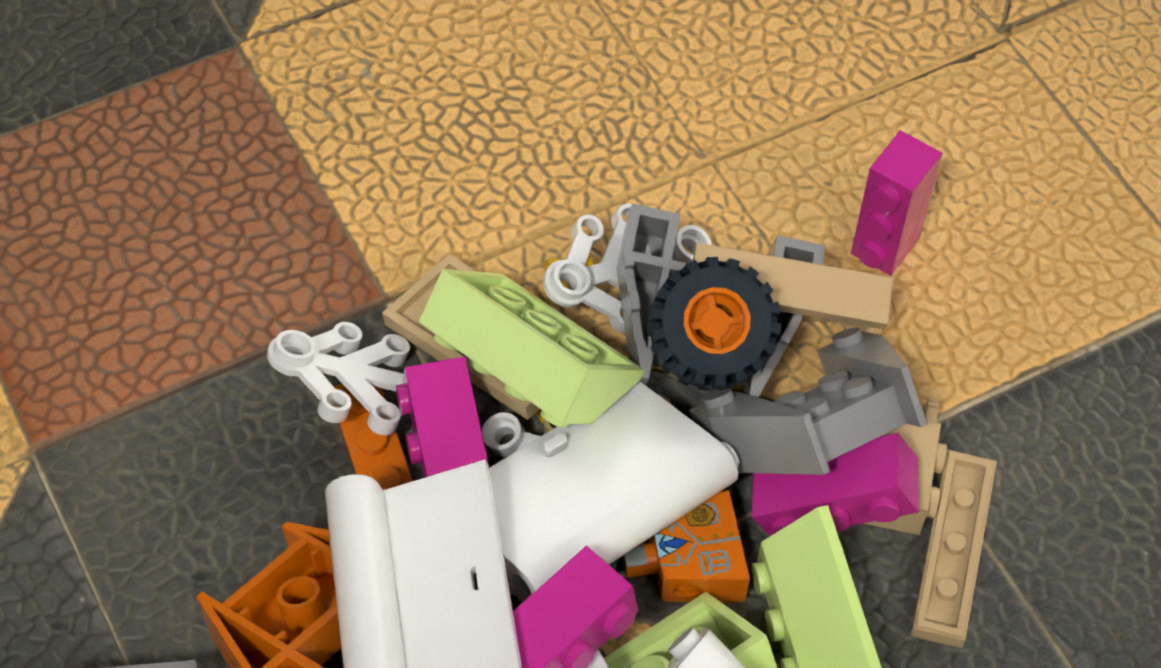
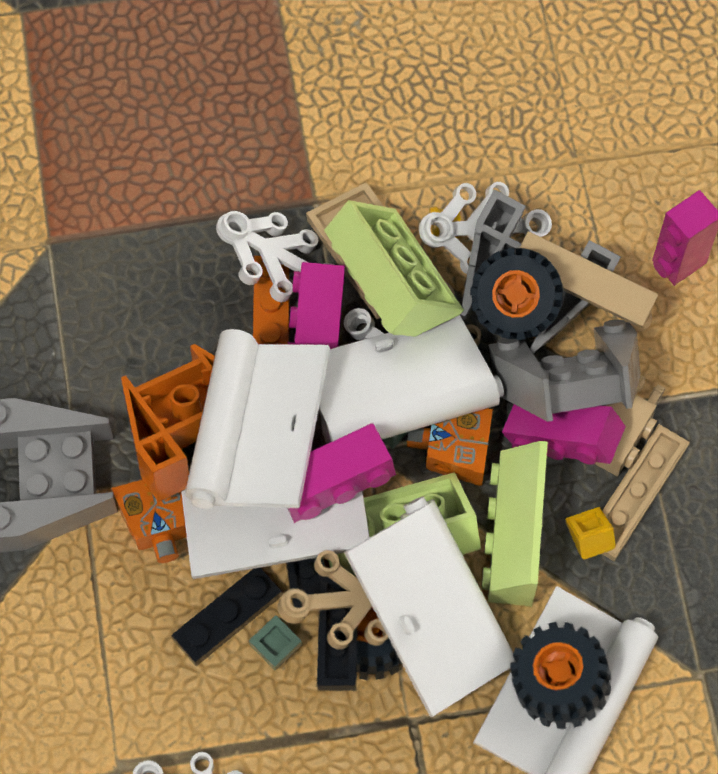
camera: 20 degrees right, 10 degrees up
(922, 616) = (591, 533): none -> yellow slope

